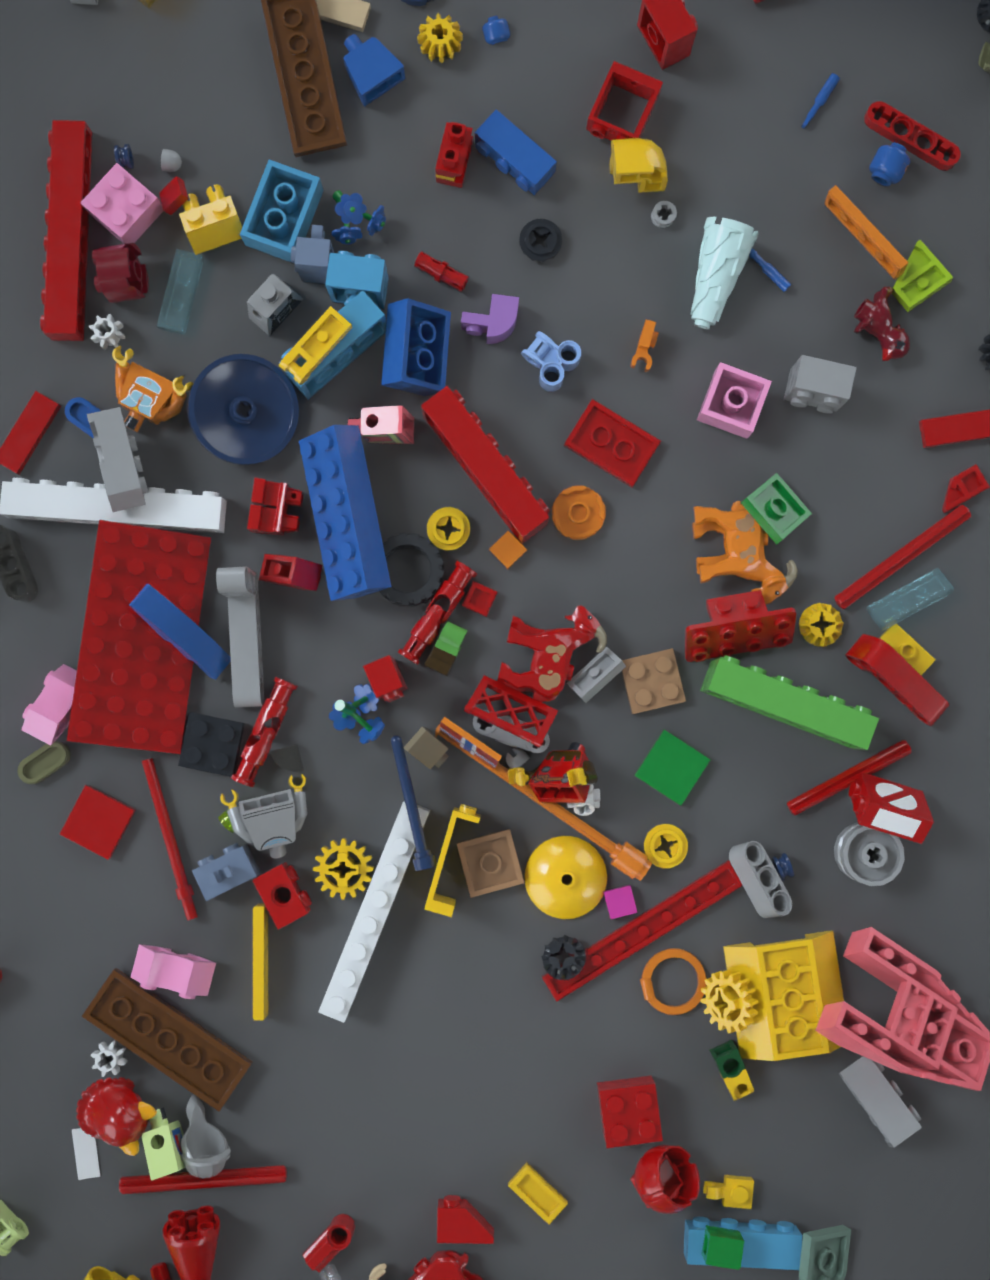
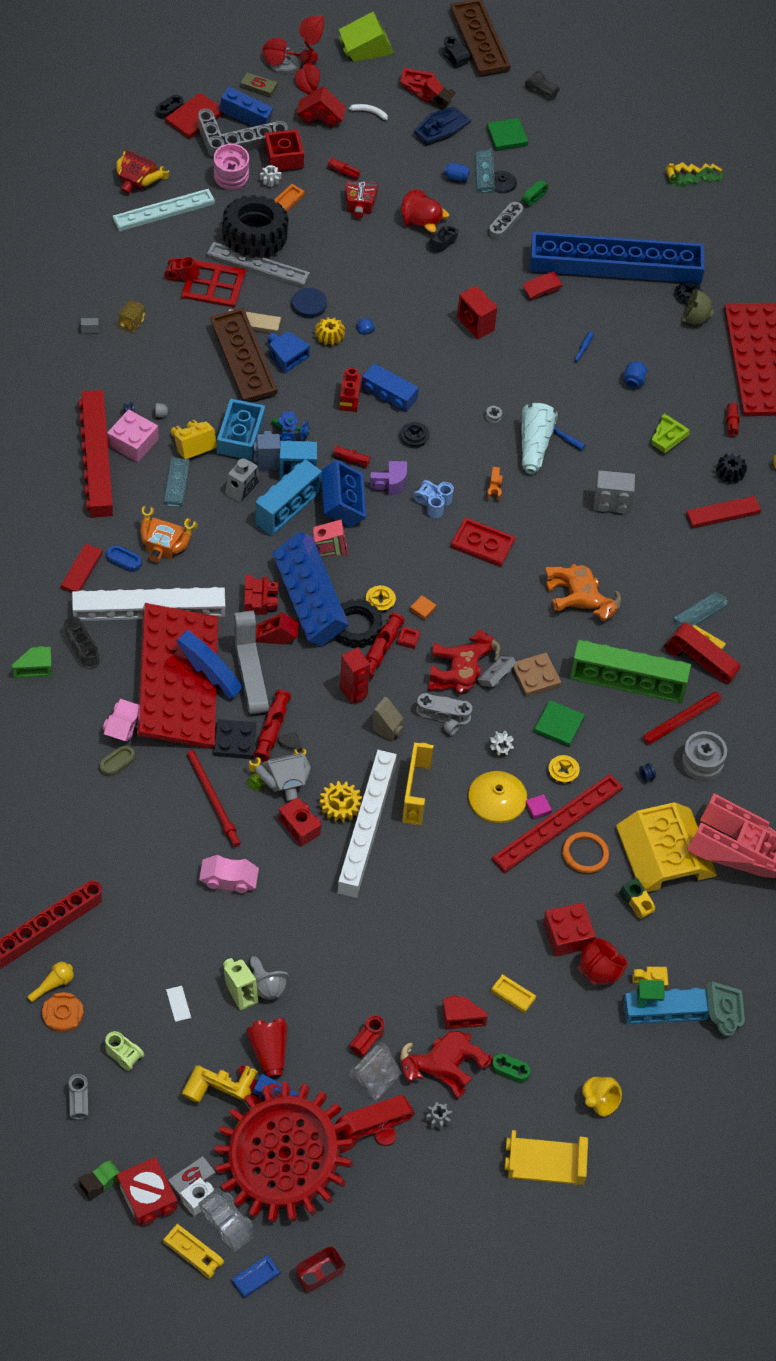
camera: 10 degrees left, 30 degrees down
(97, 822) = (160, 793): red tile -> none
(104, 325) = (131, 506): white gear -> none
(111, 1065) = (189, 934): white gear -> none
(114, 1113) = (199, 964): red hair -> none
(117, 460) = (151, 568): light grey wedge -> none
(120, 272) = (137, 470): dark red brick -> none
(167, 1039) = (230, 920): reddish brown plate -> none
(173, 195) = (166, 427): red tile -> none
(186, 1181) = (268, 1008): red axle -> none
(225, 872) = (257, 811): sand blue brick -> none
(243, 409) = (231, 539): dark blue dish -> none
(260, 962) = (290, 863): yellow tile -> none
(316, 345) = (280, 488): yellow plate -> none
(346, 714) = (339, 701): blue plant -> none
(423, 857) = (397, 776): dark blue piece -> none
(446, 648) = (390, 667): leg -> none
(485, 465) = (400, 555): red brick -> none
(490, 863) = (443, 789): medium nougat plate -> none
(505, 692) = (442, 691): red window -> none
(560, 777) = (482, 726): torso -> none
(571, 966) = (512, 840): black gear -> none
(578, 512) = (467, 583): orange tile -> none
(625, 856) = (421, 709): orange flag -> none
(633, 82) = (453, 343): red window -> none
(640, 163) = (473, 383): yellow brick -> none
(729, 1001) = (625, 850): yellow gear -> none
(734, 400) = (559, 507): bright pink brick -> none
(739, 626) = (590, 626): red bracket -> none
(760, 879) = (633, 779): light grey beam -> none
(776, 508) = (600, 564): green plate -> none
(813, 634) = (639, 636): yellow gear -> none
(865, 232) = (627, 410): orange tile -> none
(877, 320) = (645, 457): dark red animal -> none
(881, 1100) = (746, 903): light grey wedge -> none
(891, 807) = (711, 721): red brick -> none
(902, 557) = (690, 588): red axle -> none
(914, 131) = (648, 358): red beam -> none
(963, 487) = (724, 546): red tile -> none

